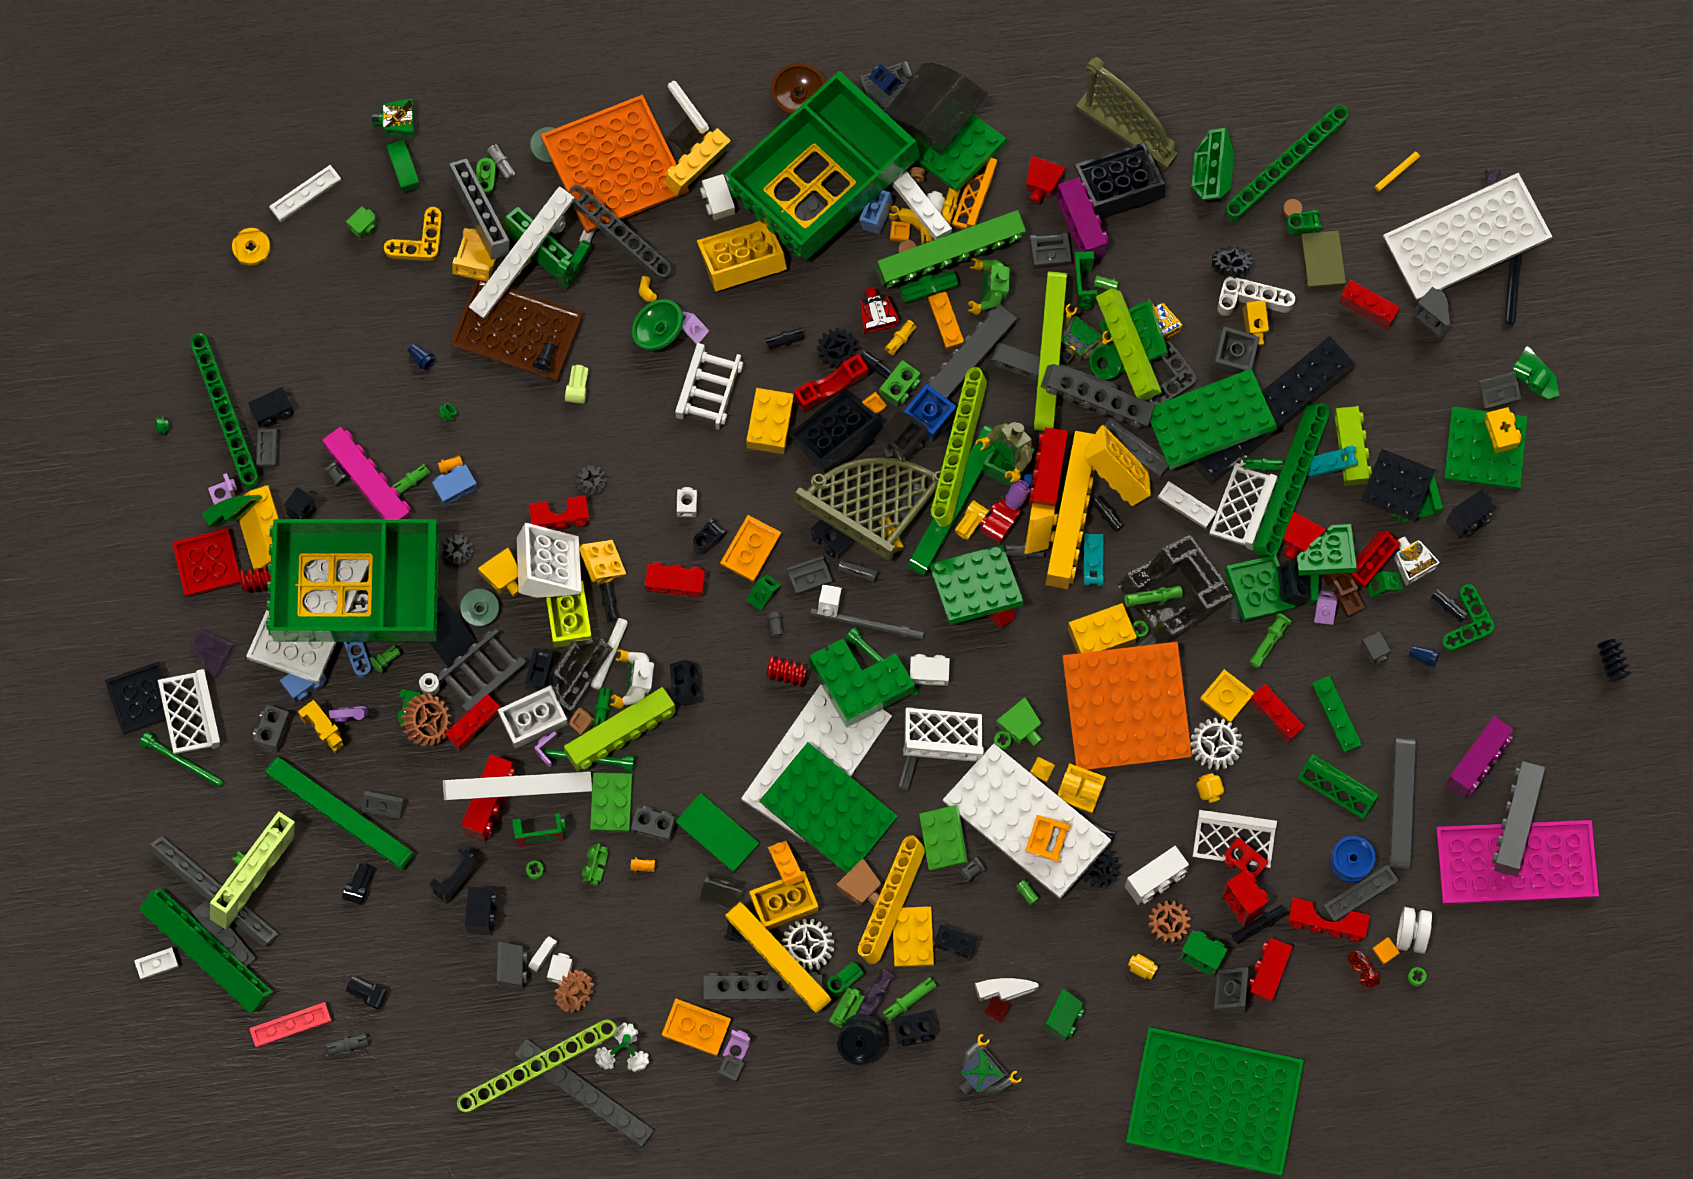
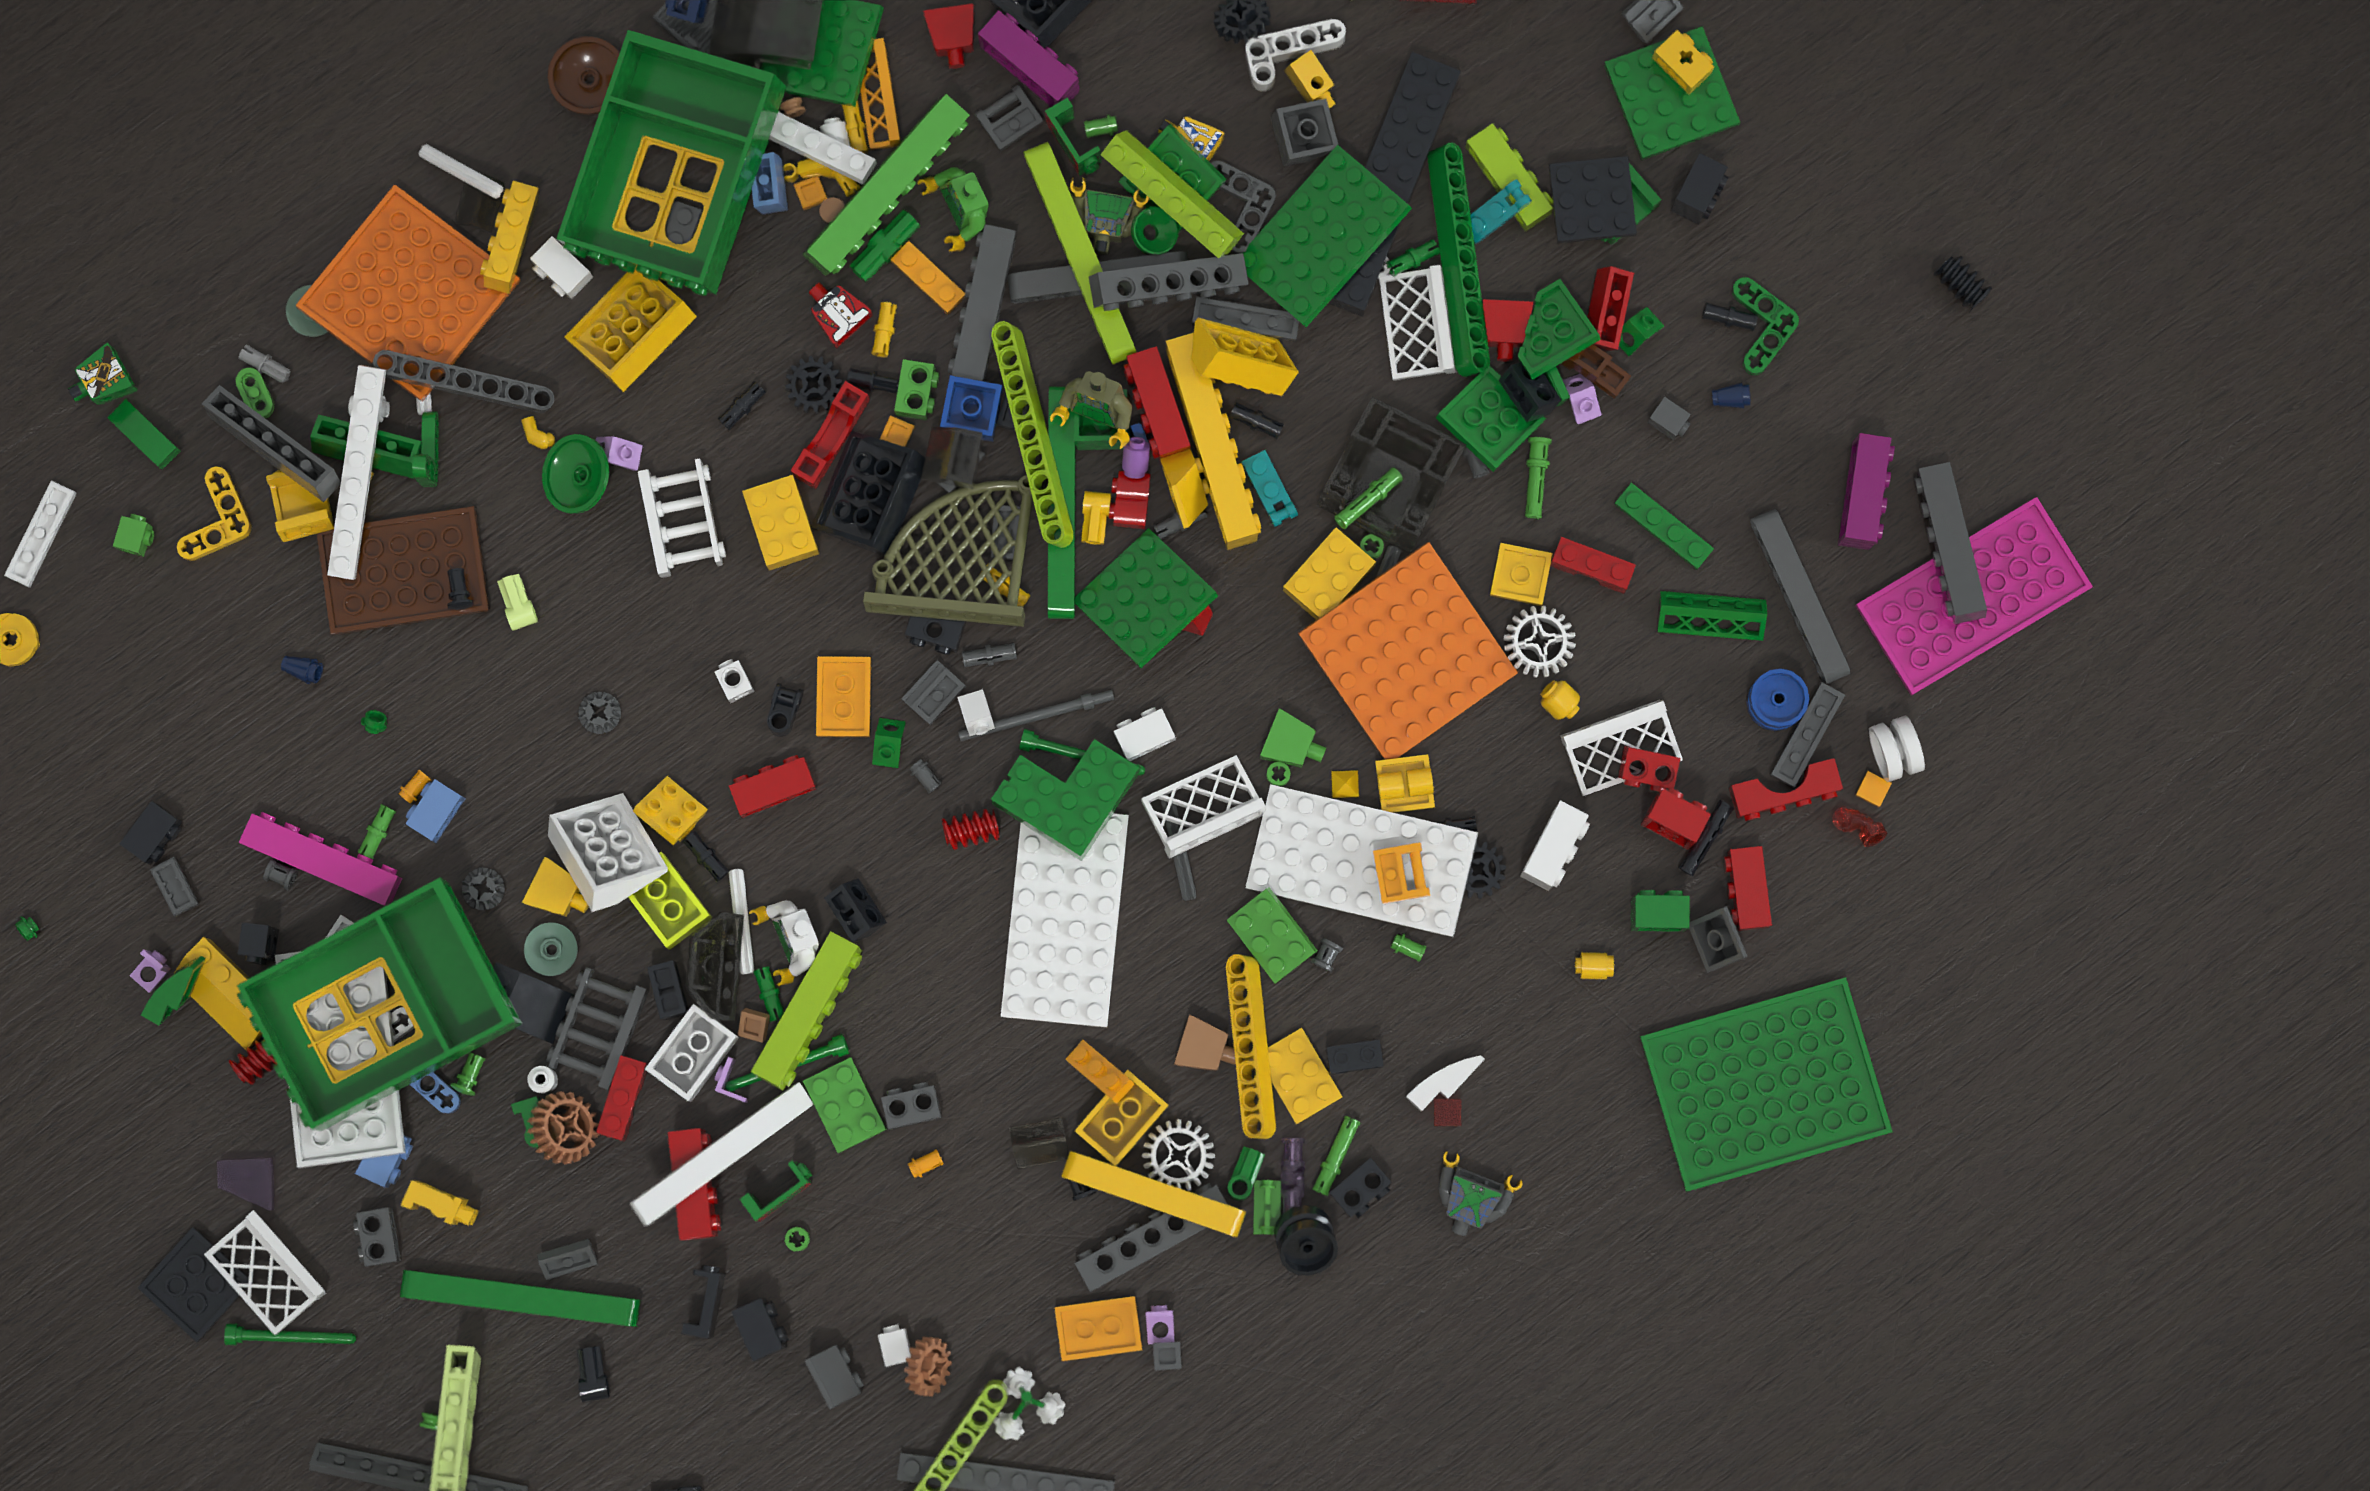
camera: 25 degrees left, 10 degrees up
(206, 562) = (181, 1071): red plate -> none
(224, 403) = (87, 859): green beam -> none
(343, 714) = (456, 1173): medium lavender plate -> none
(542, 954) = (864, 1338): white beam -> none
(575, 514) = (604, 767): red arch -> none
(591, 871) = (867, 1205): bright green hinge -> none
(717, 833) = (994, 1074): green tile -> none
(827, 808) = (1113, 974): green plate -> none
(1063, 1016) = (1532, 1078): green slope -> none
(1177, 921) = (1589, 883): nougat gear -> none
(1186, 505) = (1347, 358): white plate -> none
(1411, 974) = (1934, 799): bright green bush -> none
(1414, 560) = (1659, 283): torso -> none

